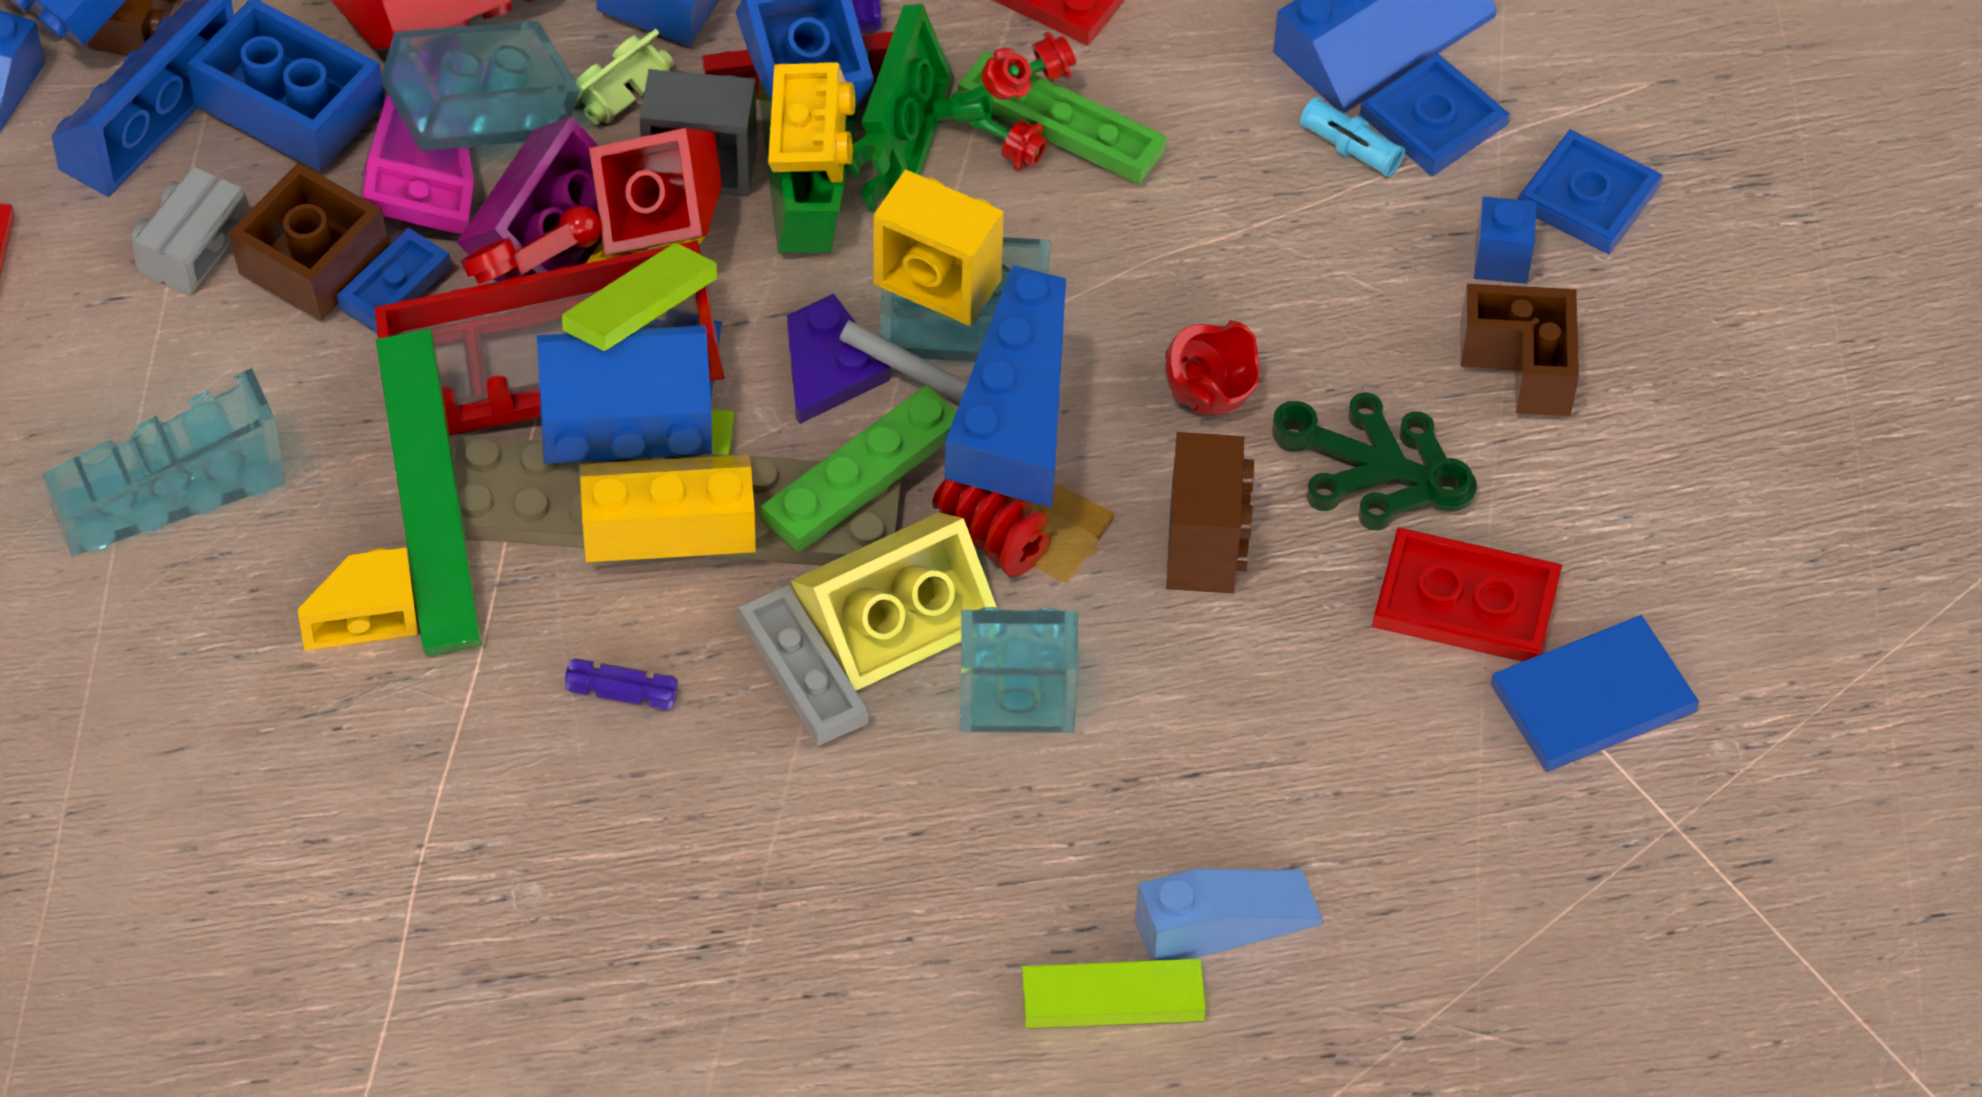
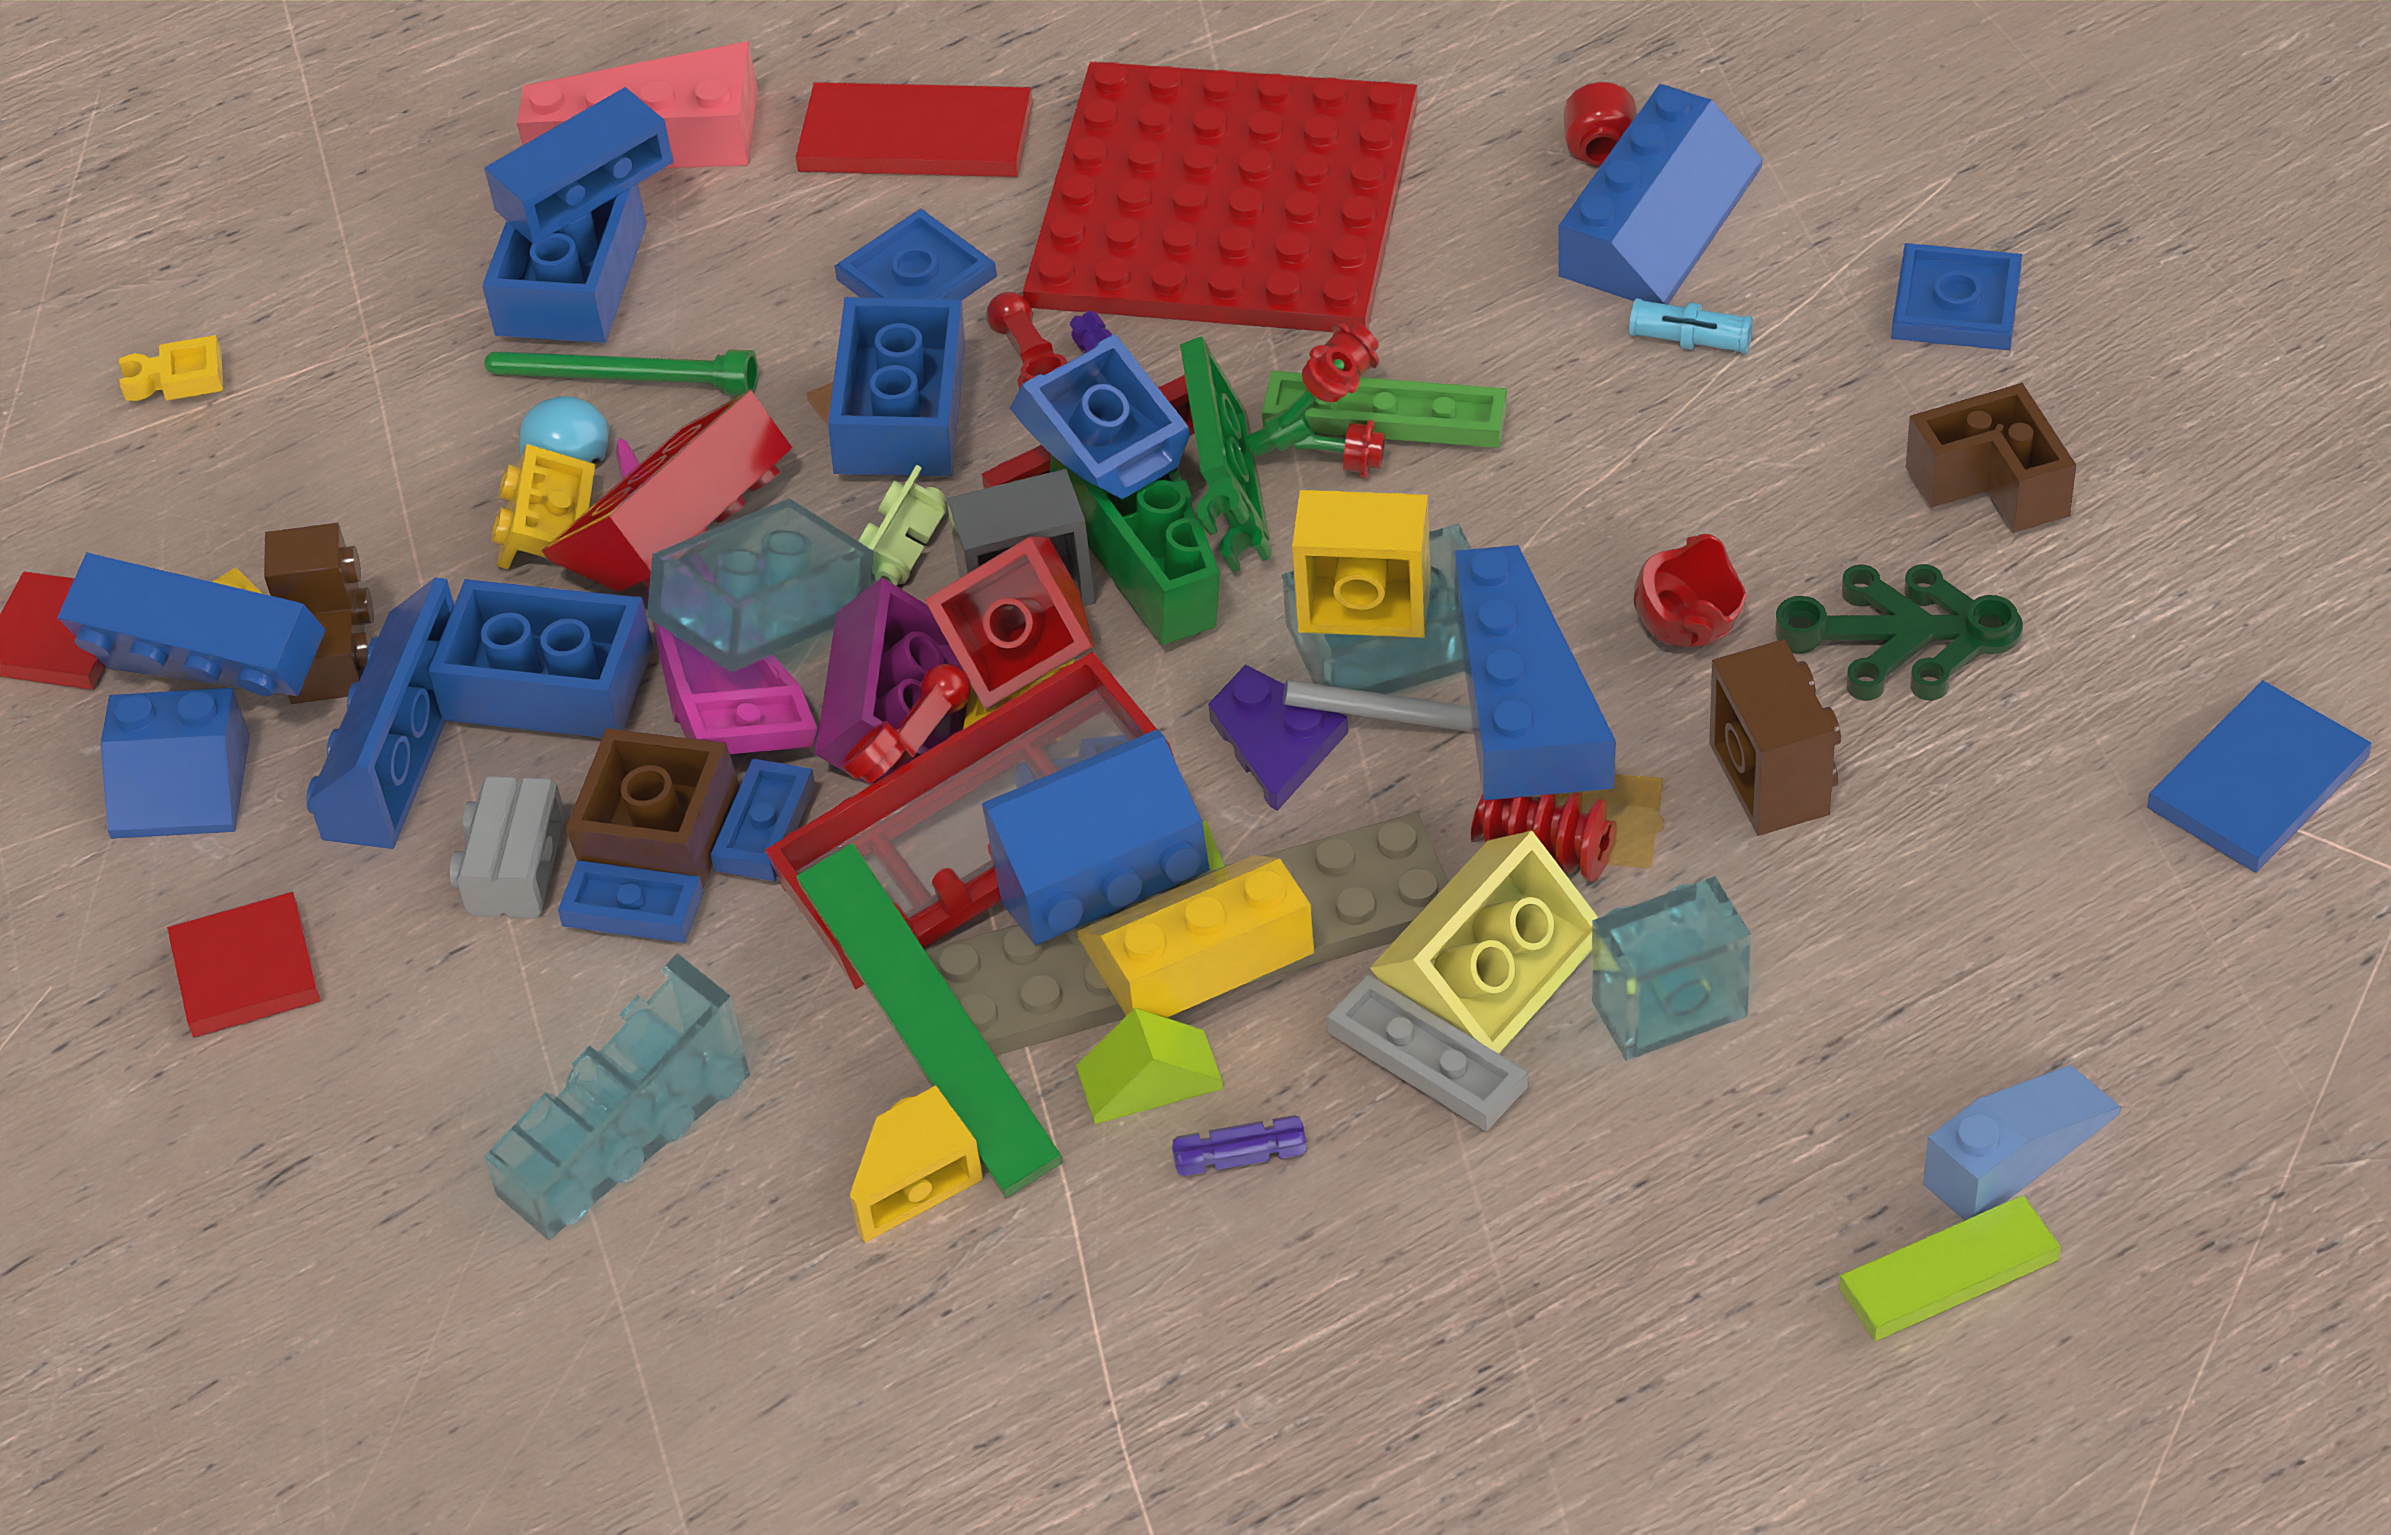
camera: 15 degrees left, 5 degrees down
(260, 309) = (631, 901): none -> blue plate
(585, 593) = (1146, 1066): none -> lime slope
(639, 296) = (1070, 725): lime tile -> none
(811, 119) = (1147, 486): yellow bracket -> none
(860, 469) = (1383, 825): bright green plate -> none
(1434, 114) = (1759, 276): blue tile -> none
(1467, 595) = (2072, 727): red tile -> none
(1505, 240) = (1908, 367): blue brick -> none

